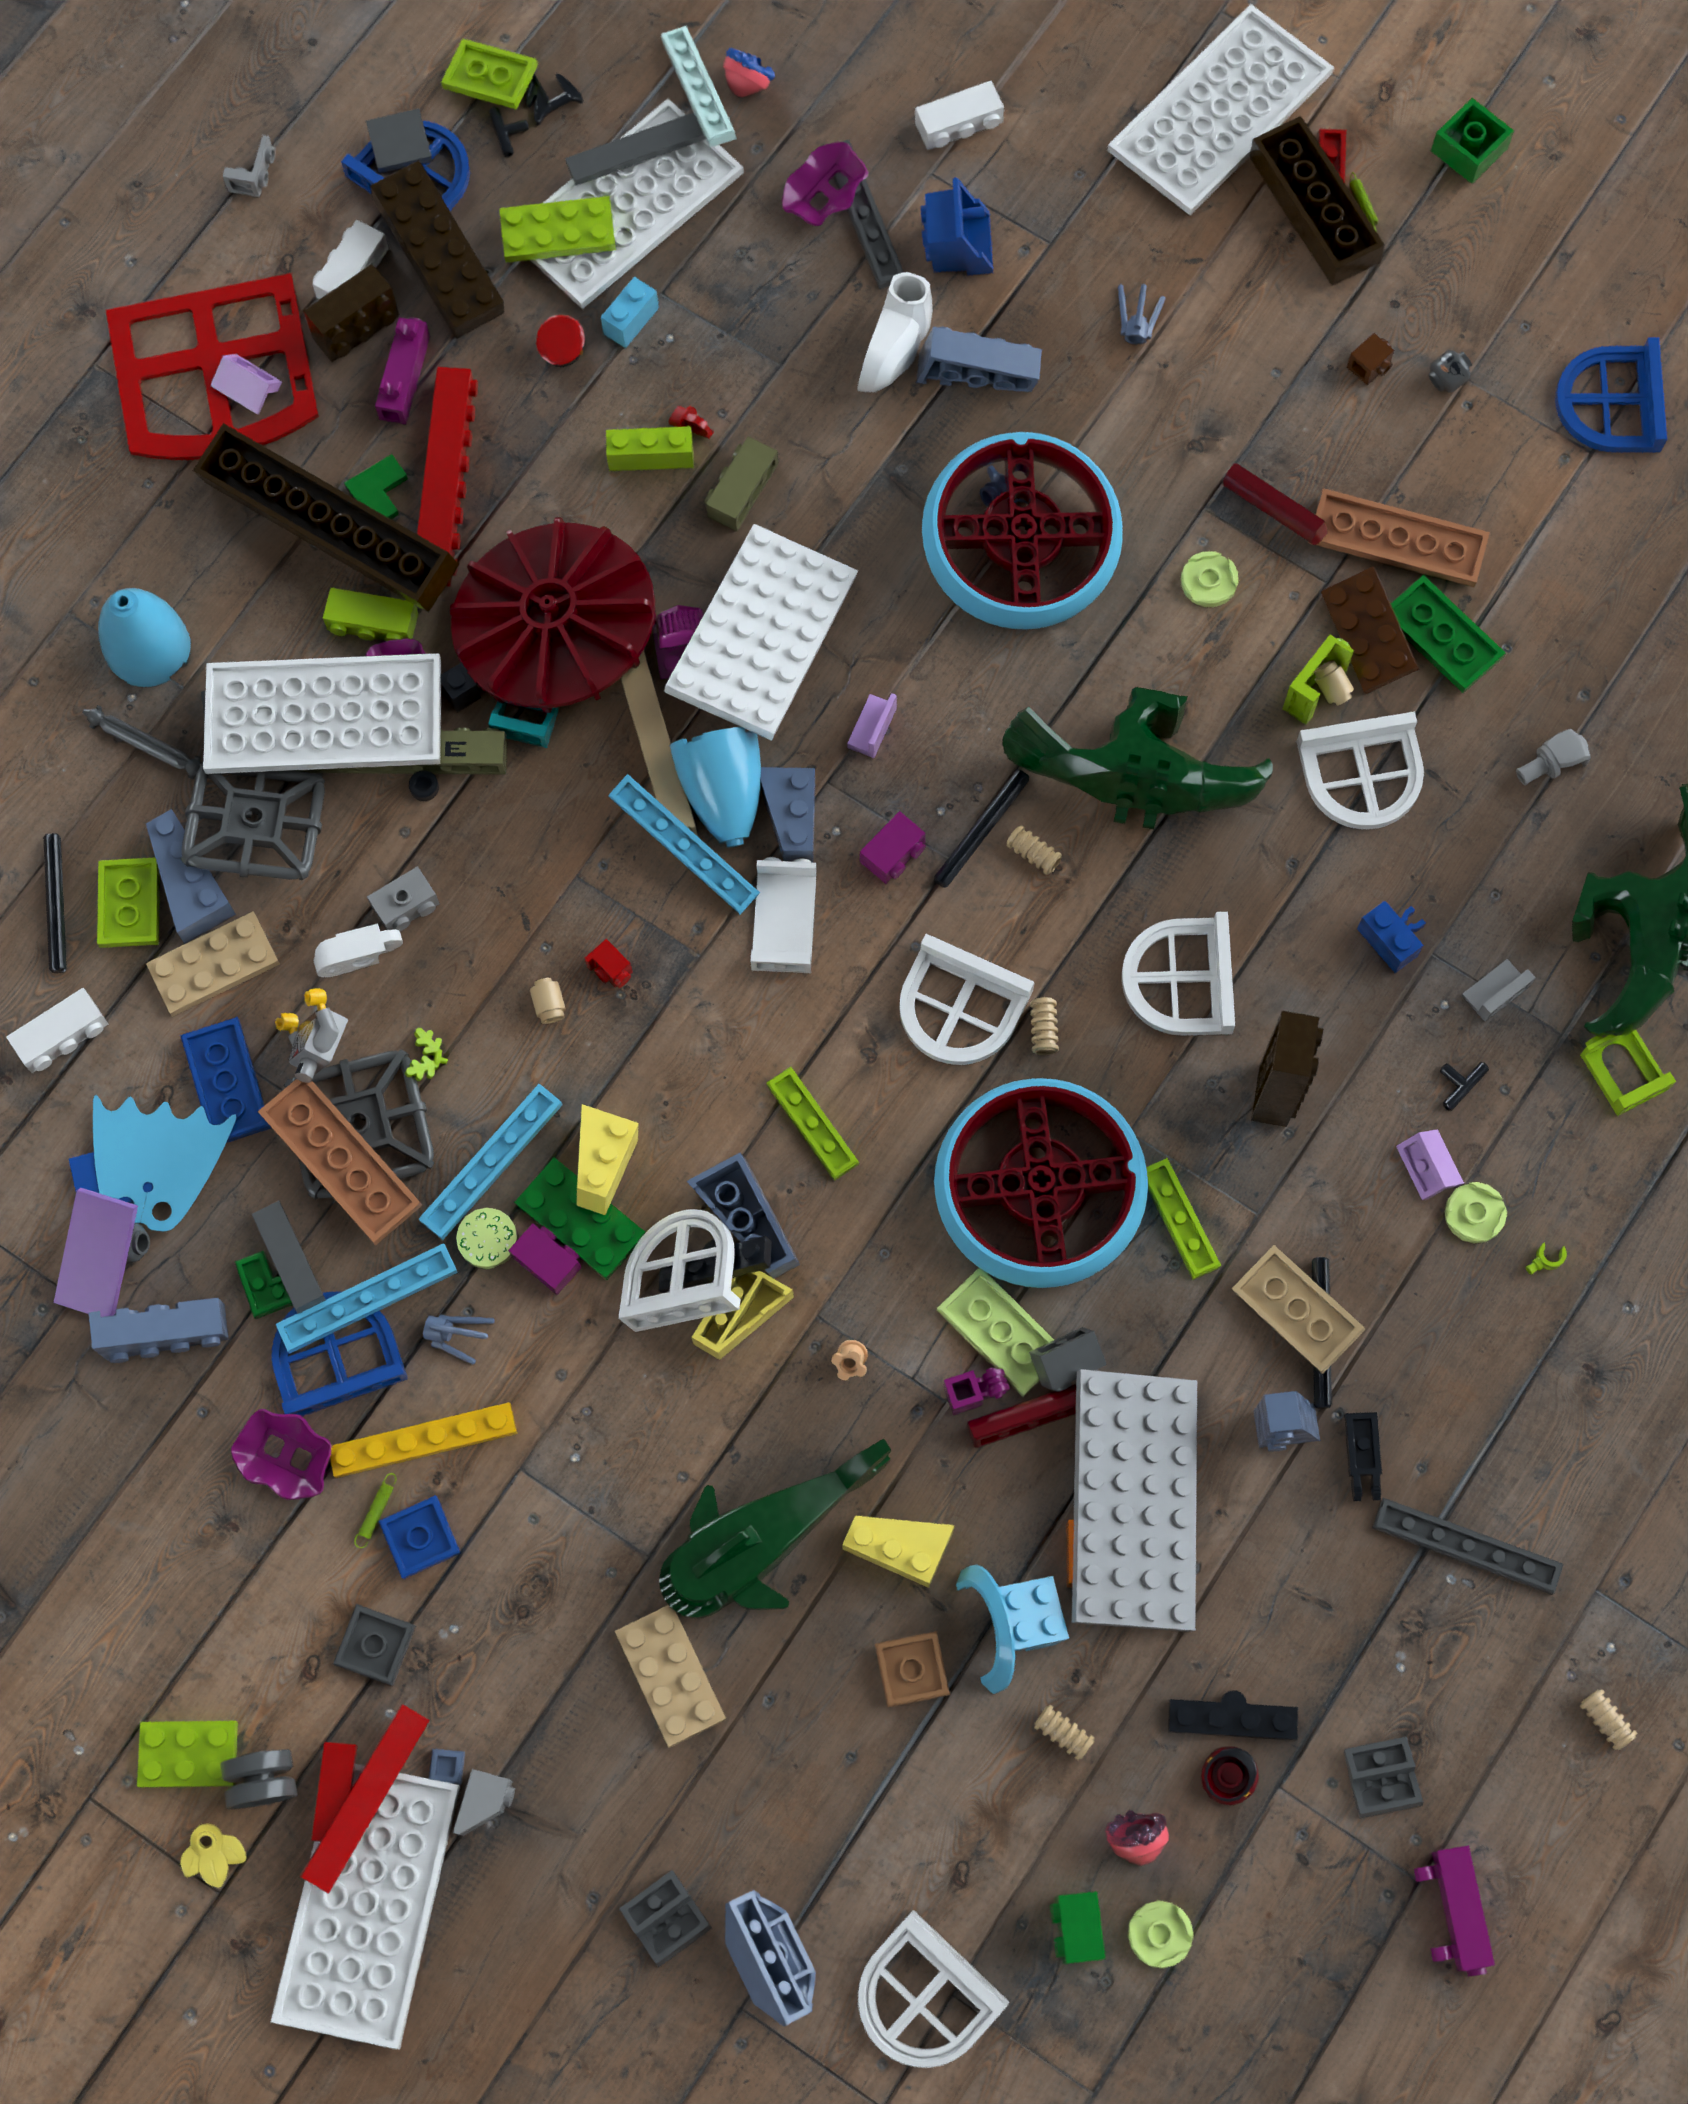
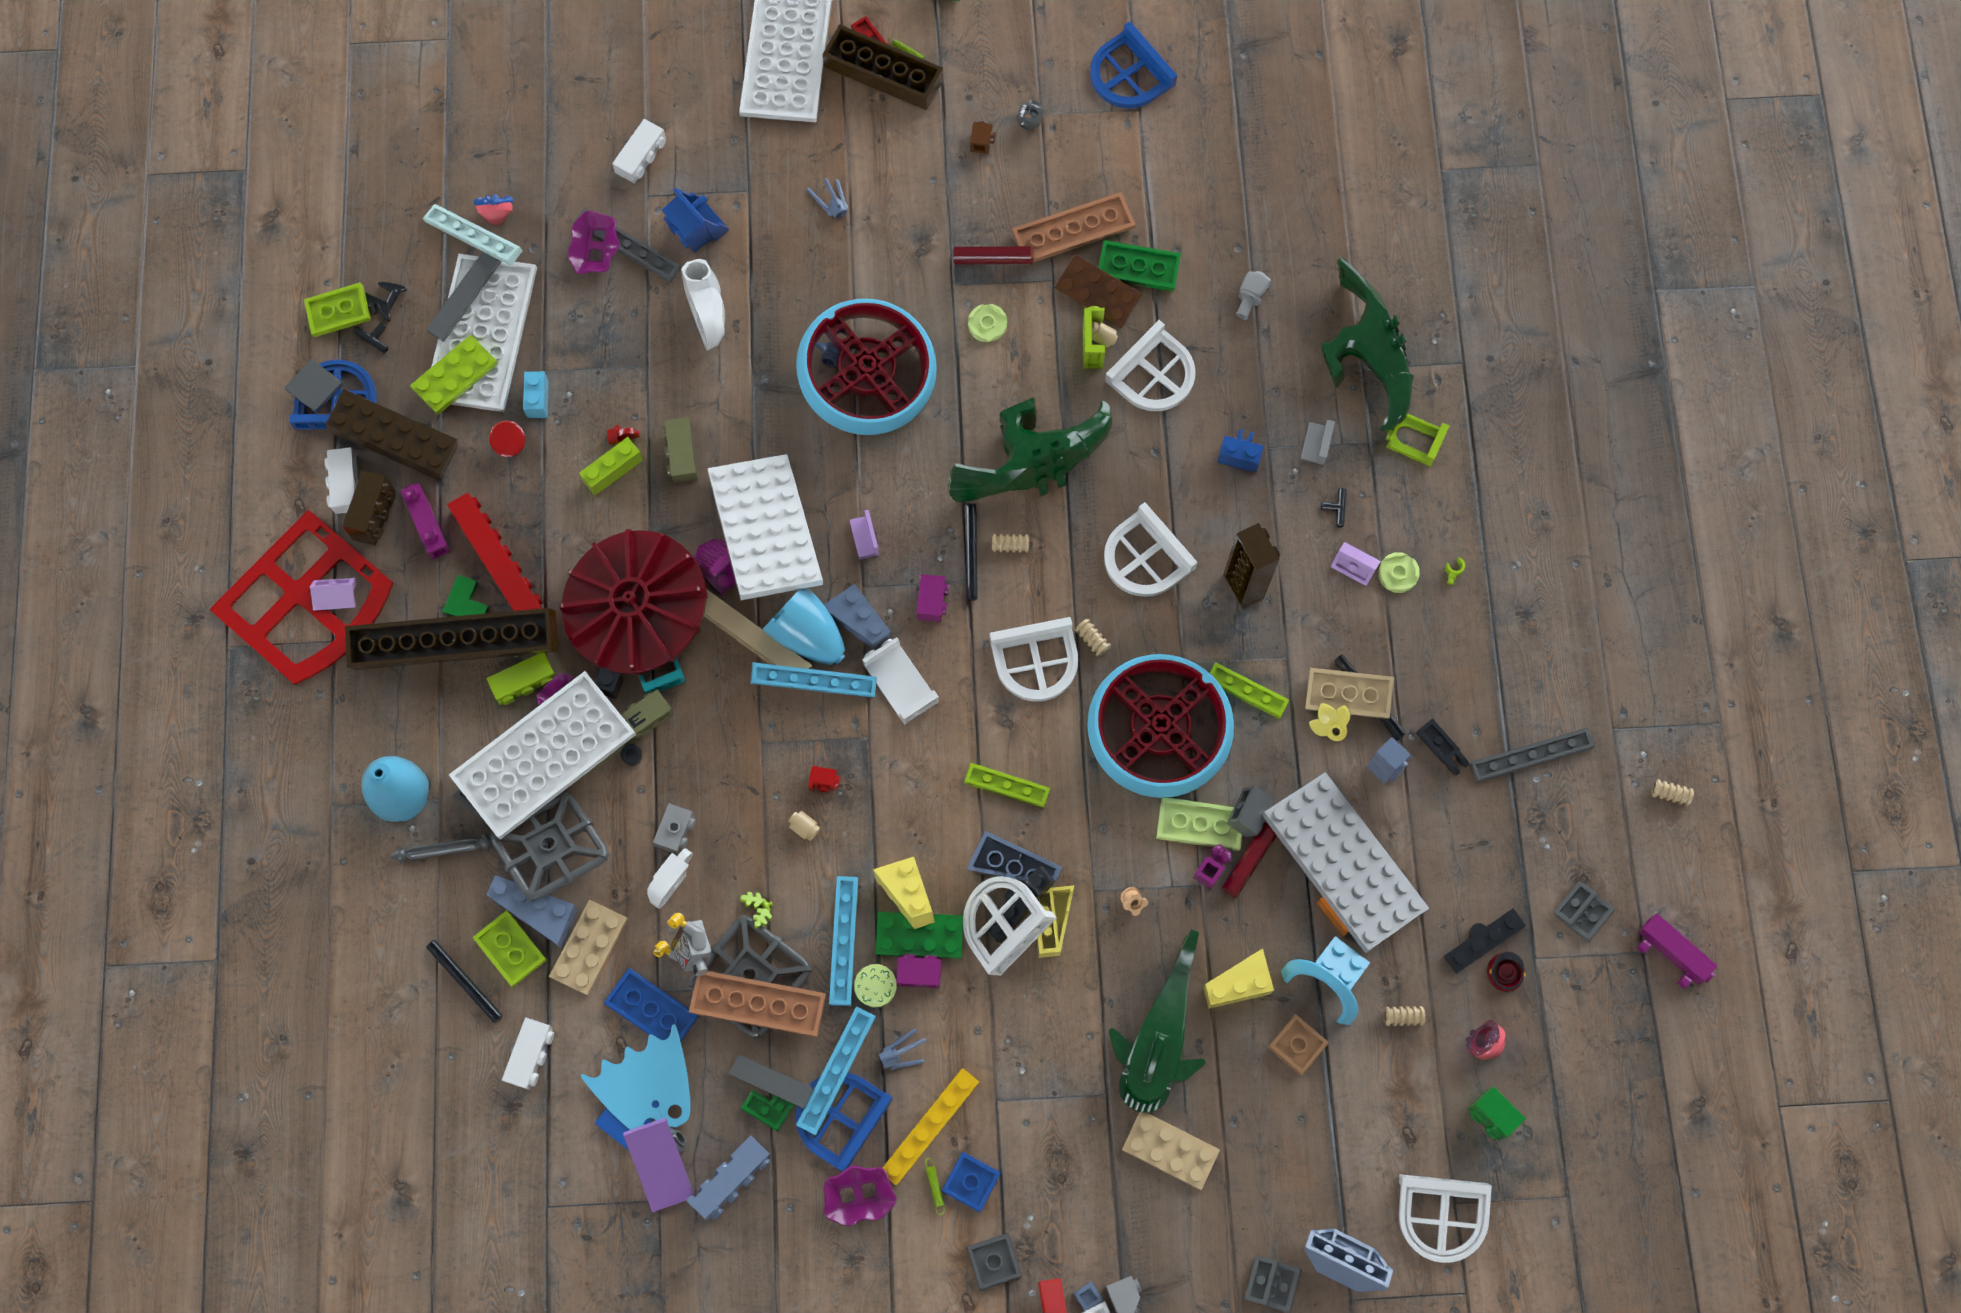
camera: 40 degrees left, 0 degrees up
(247, 182) = (236, 474): light grey bracket -> none
(978, 361) = (762, 286): sand blue wedge -> none
(1160, 1934) = (1536, 1084): yellowish green tile -> none
(1251, 1322) = (1329, 719): none -> light yellow plate

